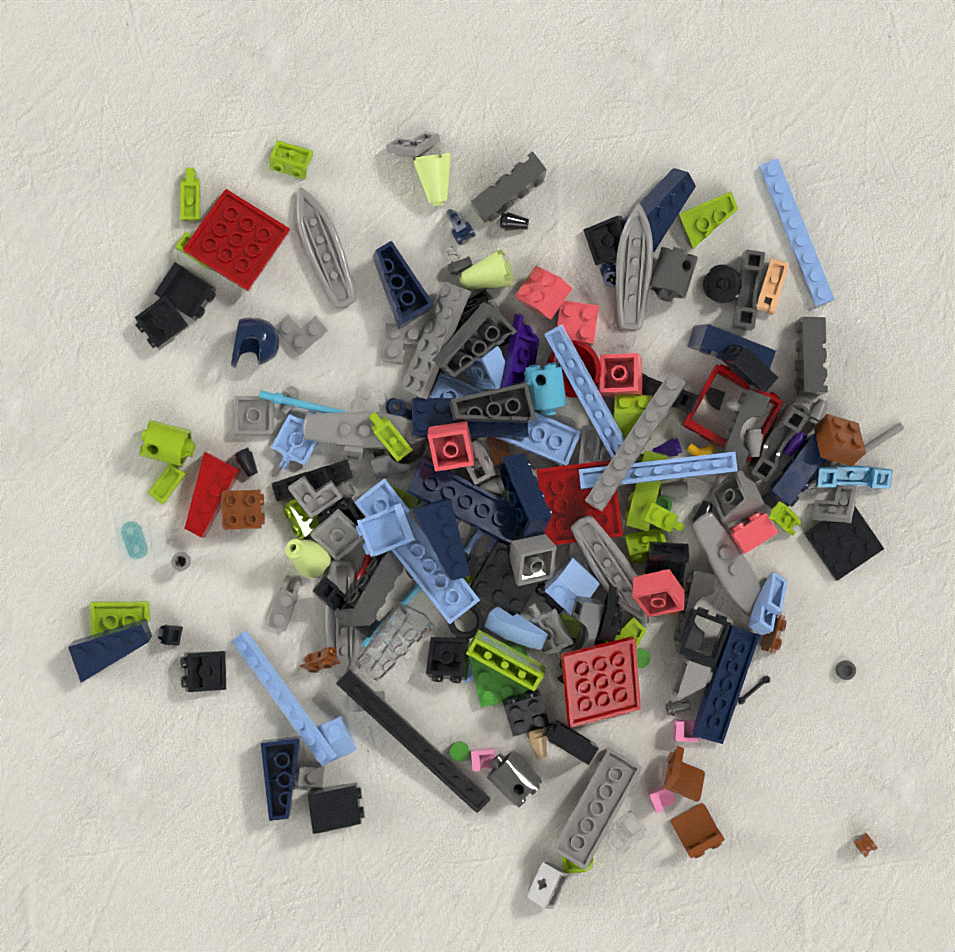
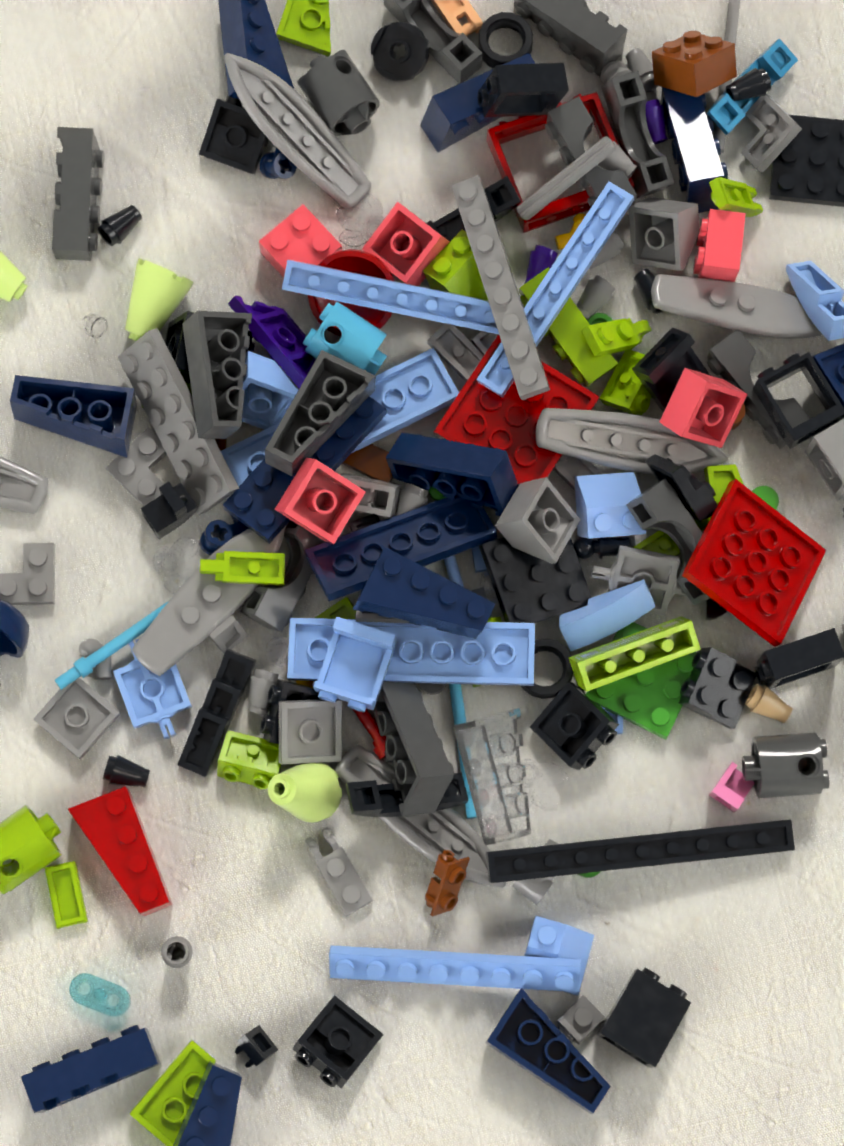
camera: 50 degrees left, 10 degrees down
(95, 566) = (90, 1070): none -> dark blue wedge
(242, 509) = (179, 822): dark orange bracket -> none
(314, 501) = (246, 723): light grey plate -> none
(390, 372) = (169, 509): none -> black brick
(459, 266) = (113, 333): dark grey pin -> none
(459, 751) = (699, 809): bright green tile -> none
(462, 230) = (75, 289): dark blue piece -> none
(543, 292) = (232, 254): coral brick -> none
(715, 397) = (525, 168): black tile -> none
(720, 427) = (566, 178): none -> light grey axle
(781, 319) = (499, 21): none -> black tyre
(853, 477) = (750, 85): none -> black cone

